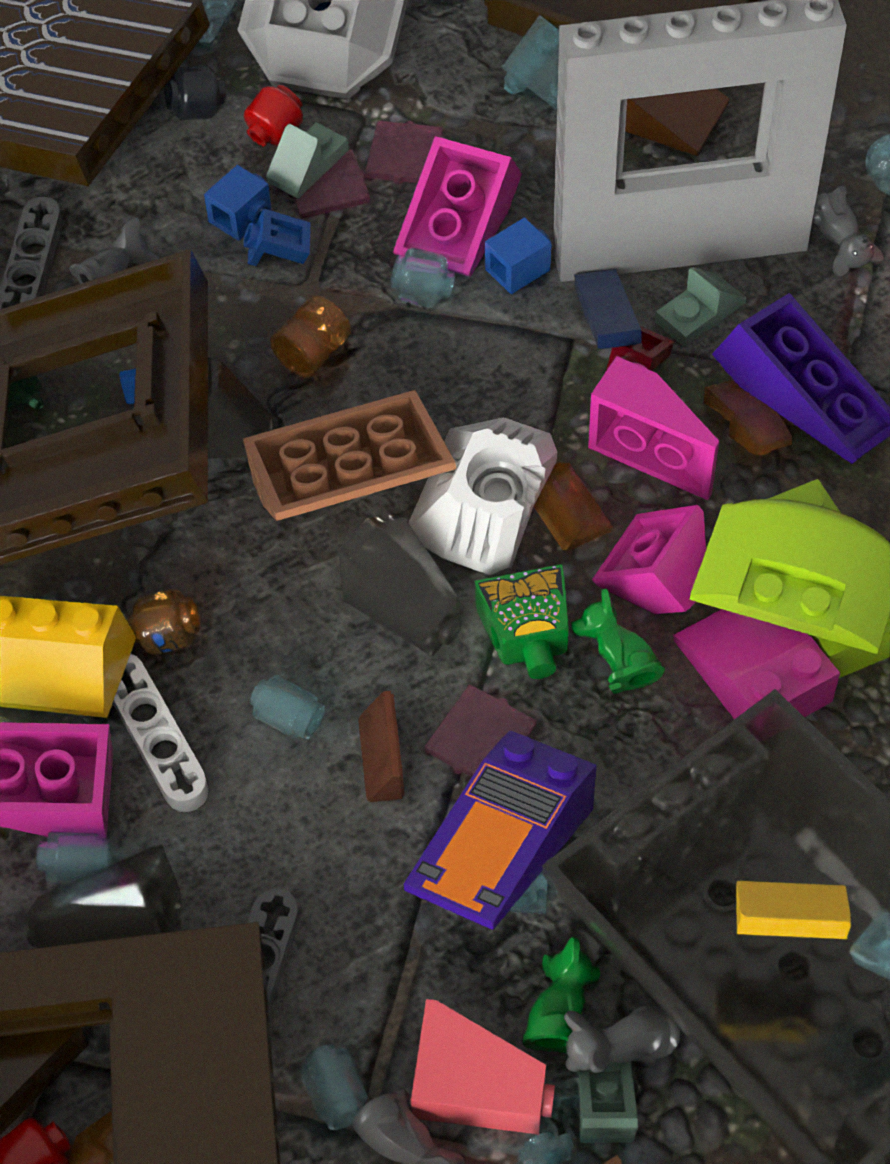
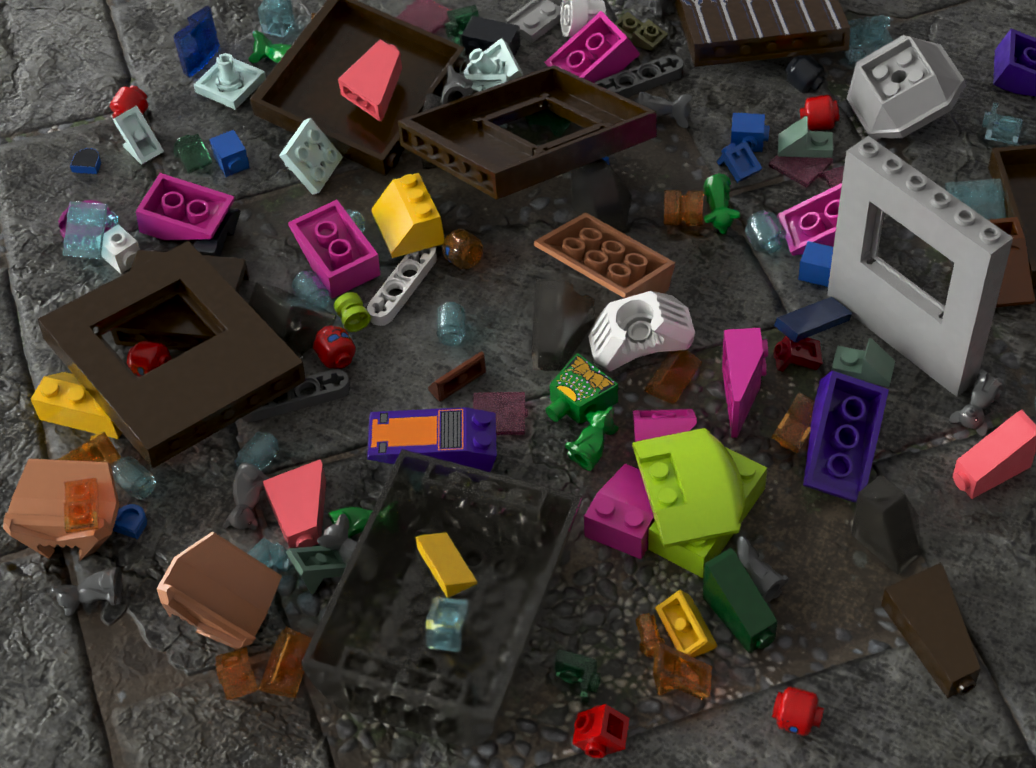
camera: 60 degrees right, 5 degrees down
(163, 822) = (352, 312): none -> lime wheel
(216, 878) = (334, 347): none -> red head
(359, 305) = (717, 192): none -> green animal

